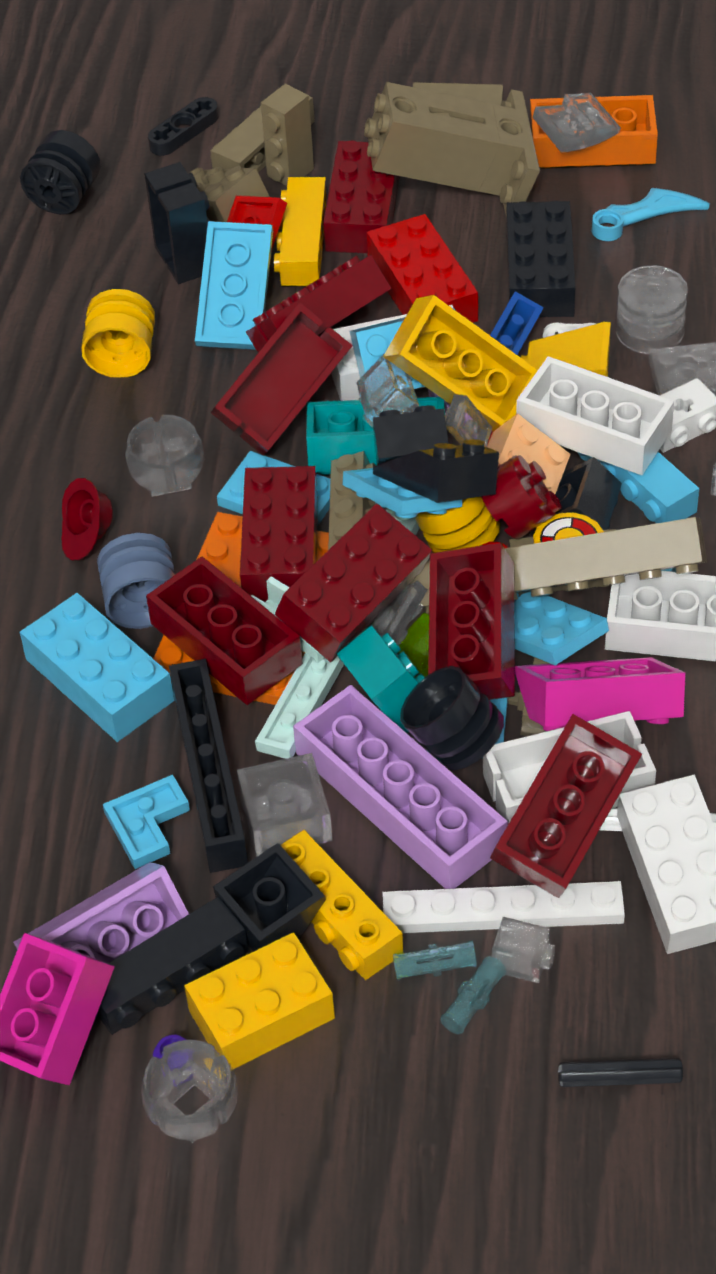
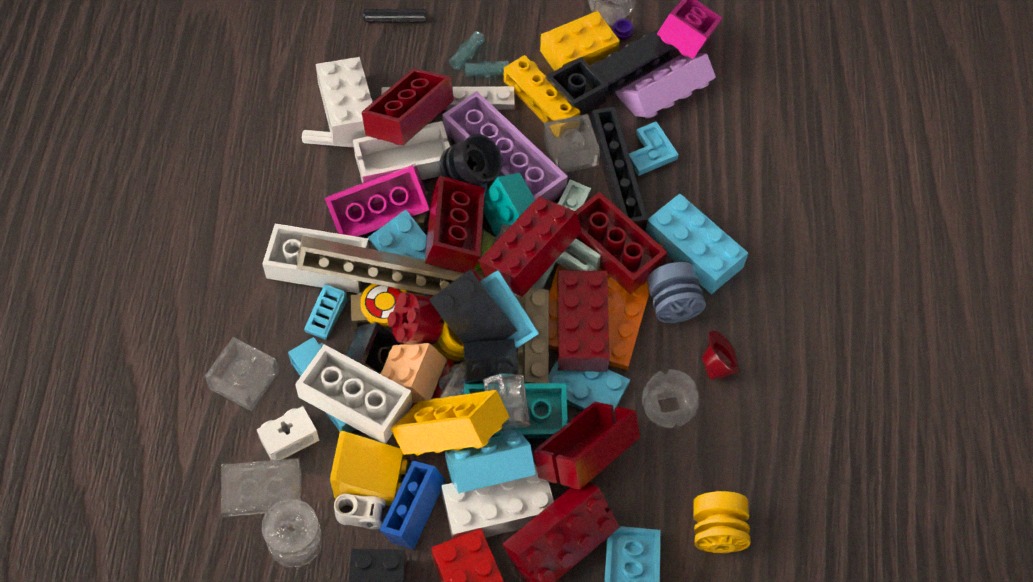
camera: 175 degrees right, 10 degrees up
(523, 949) = (440, 64): clear brick -> none

